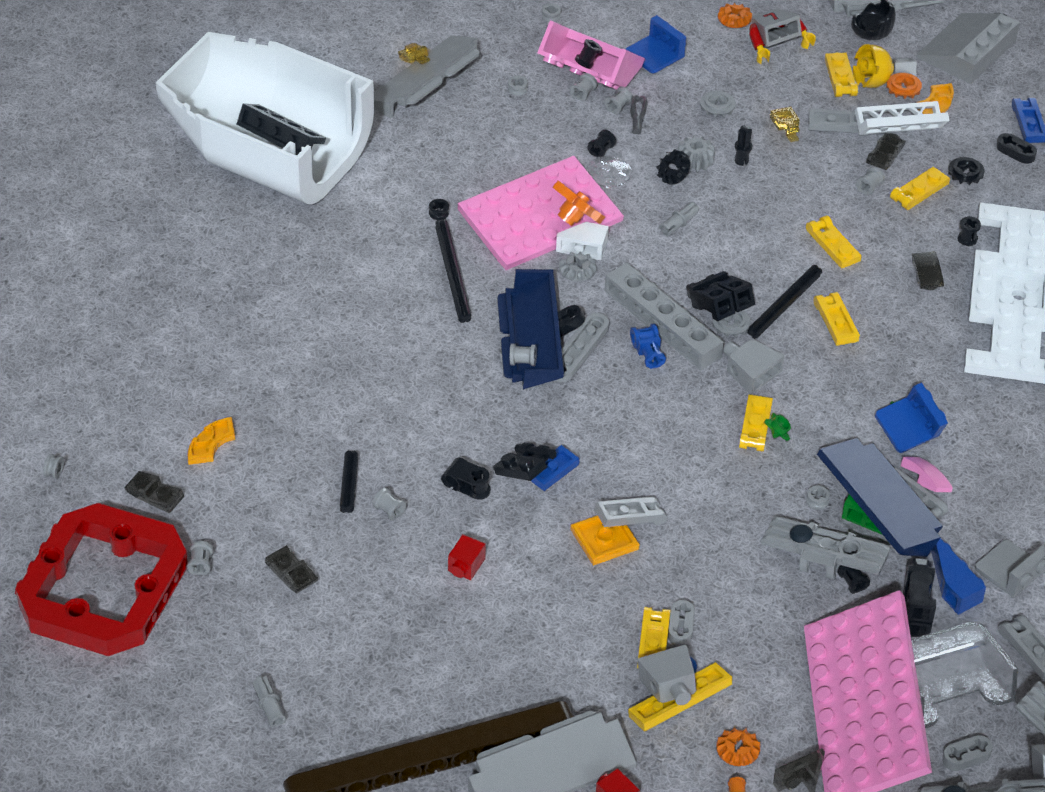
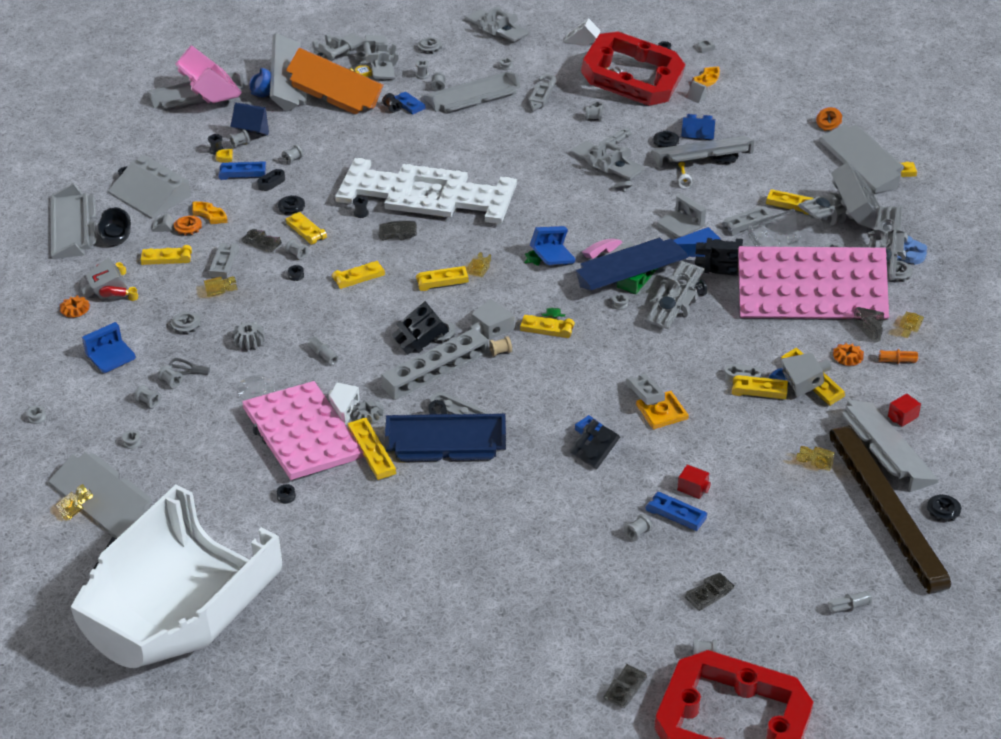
camera: 85 degrees left, 5 degrees down
(209, 440) = (561, 650): light orange tile -> none
(276, 127) = (174, 591): black fence -> none
(349, 481) = (608, 554): black axle -> none
(418, 542) = (676, 511): none -> blue plate
(453, 271) = (363, 486): black axle -> none
(467, 479) = (609, 479): black piece -> none
(504, 272) = (372, 448): none -> yellow plate
(515, 690) = (819, 457): none -> clear yellow plate
(523, 354) = (483, 436): light grey bush -> none
(575, 206) = (318, 393): orange plant -> none
(588, 53) = (112, 386): black bush -> none
(601, 143) = (227, 390): black bush -> none
(611, 67) = (109, 390): bright pink windscreen -> none
(647, 343) = (464, 374): blue connector -> none
(673, 176) = (261, 356): black gear -> none
(705, 376) = (500, 346): none -> tan bush
(743, 145) = (252, 304): black axle -> none
(784, 301) = (417, 300): black axle -> none
(826, 191) = (296, 272): none -> black bush
(871, 354) = (479, 266): none -> clear yellow plate
(872, 63) = (169, 230): yellow cylinder -> none
(900, 123) = (238, 225): white fence -> none

